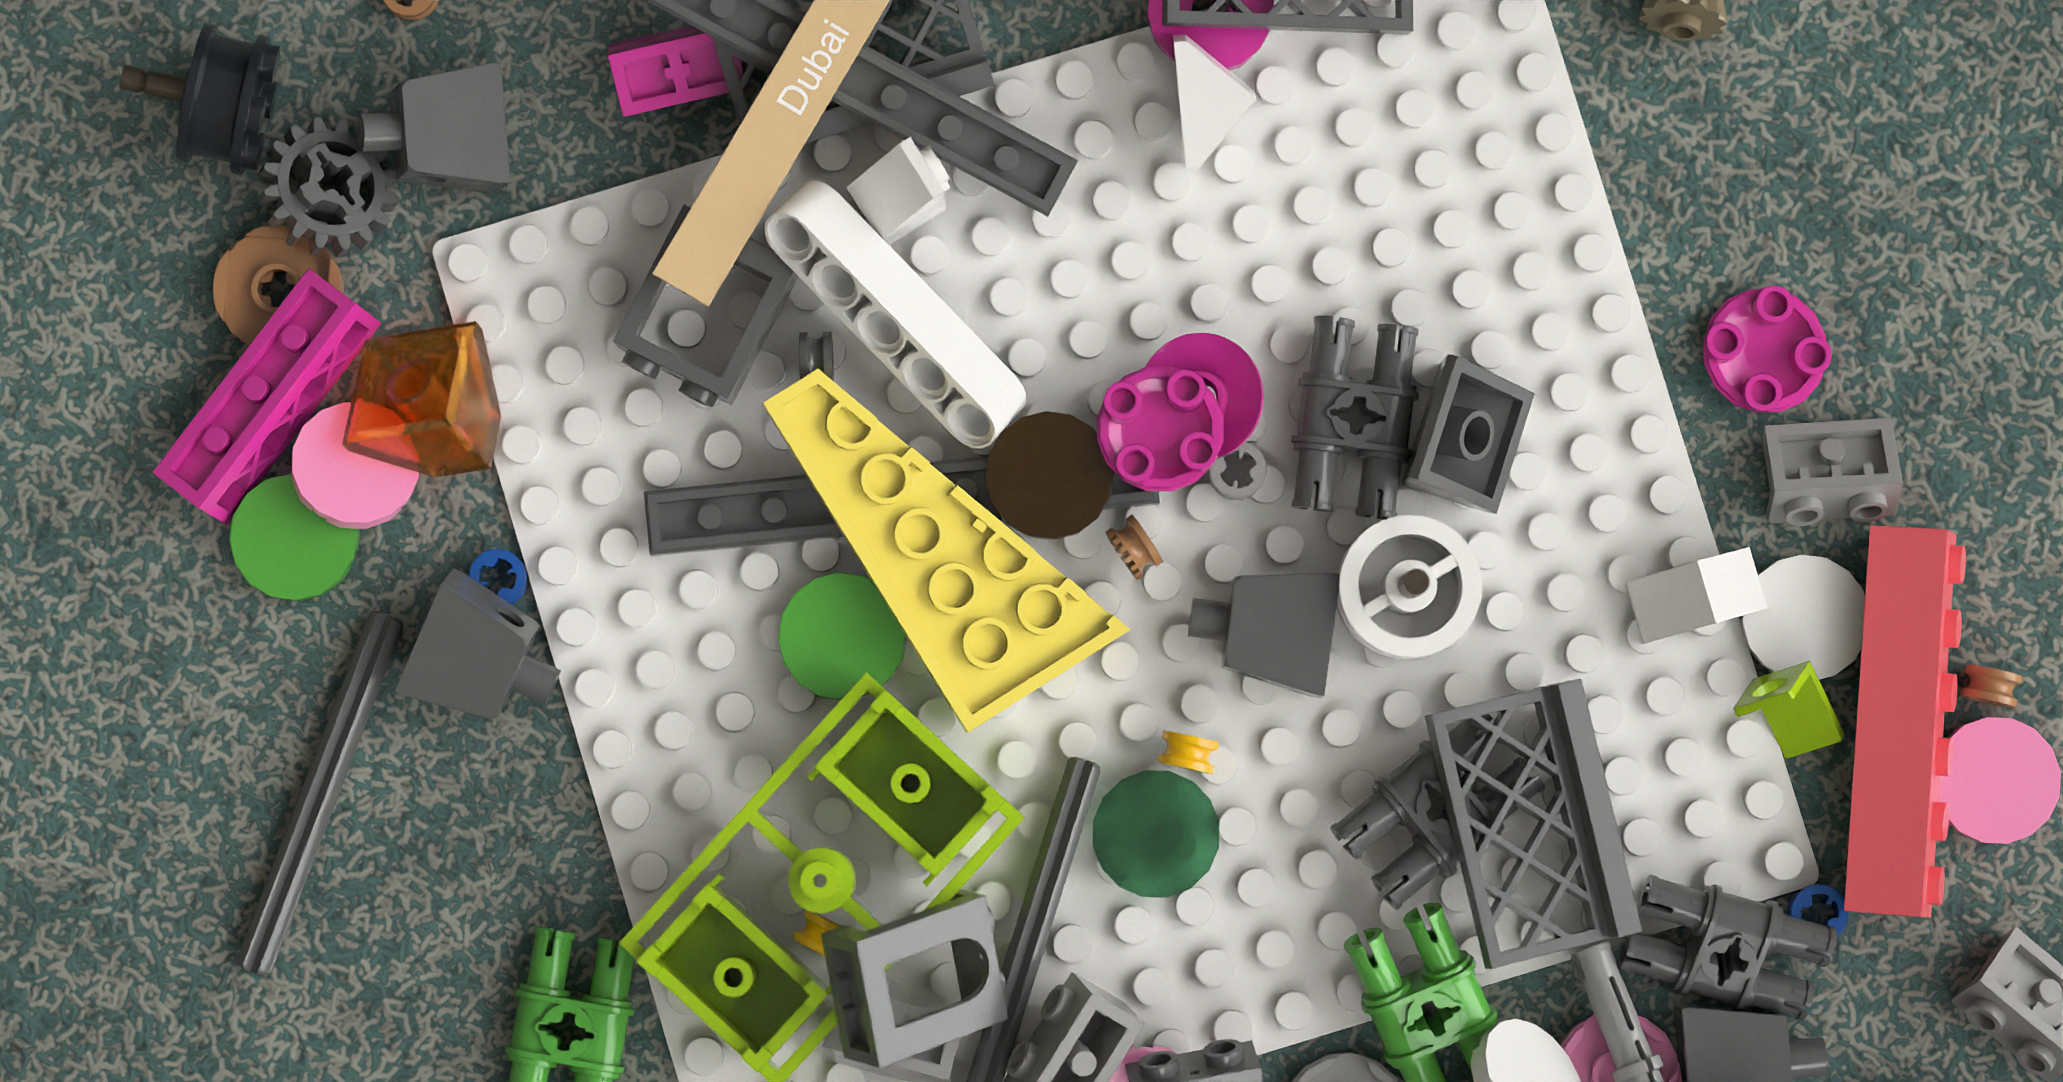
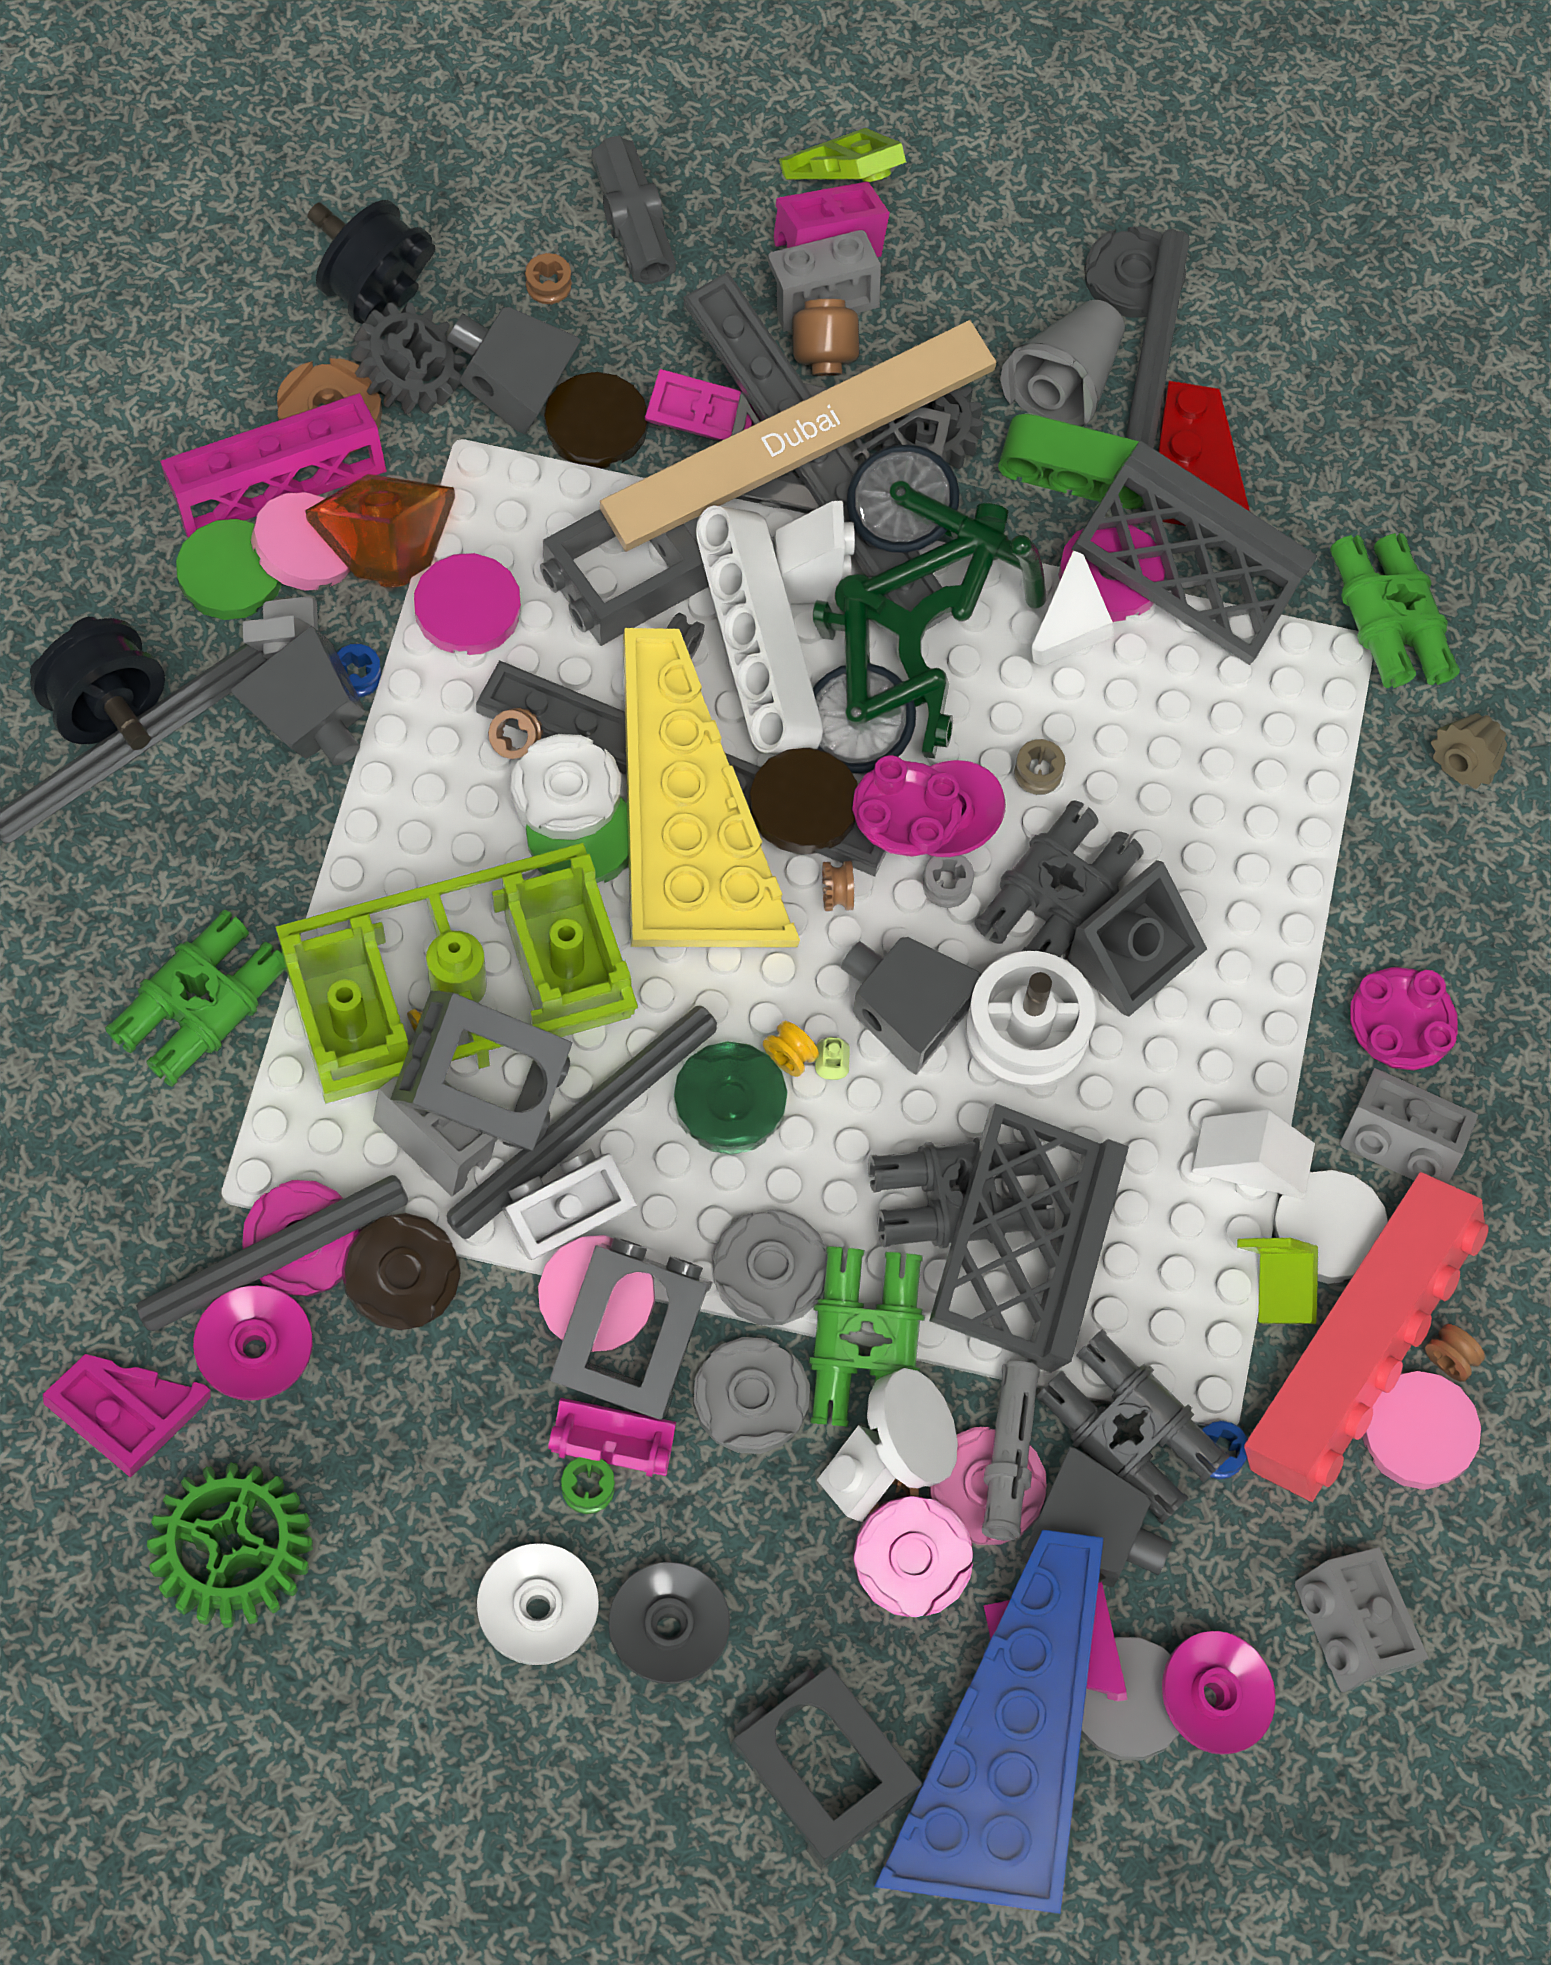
camera: 25 degrees right, 20 degrees down
(258, 766) = (98, 682): none -> black wheel
(403, 579) = (280, 624): none -> light grey bracket
(565, 134) = (596, 419): none -> dark brown tile
(569, 442) = (467, 603): none -> dark pink tile
(721, 554) = (526, 721): none -> medium nougat bush
(800, 600) = (566, 787): none -> white tile
(967, 87) = (901, 505): none -> piece
(1231, 730) = (833, 1058): none -> yellowish green rock
(1241, 293) = (1041, 750): none -> dark tan bush
(1294, 985) = (770, 1267): none -> light grey tile

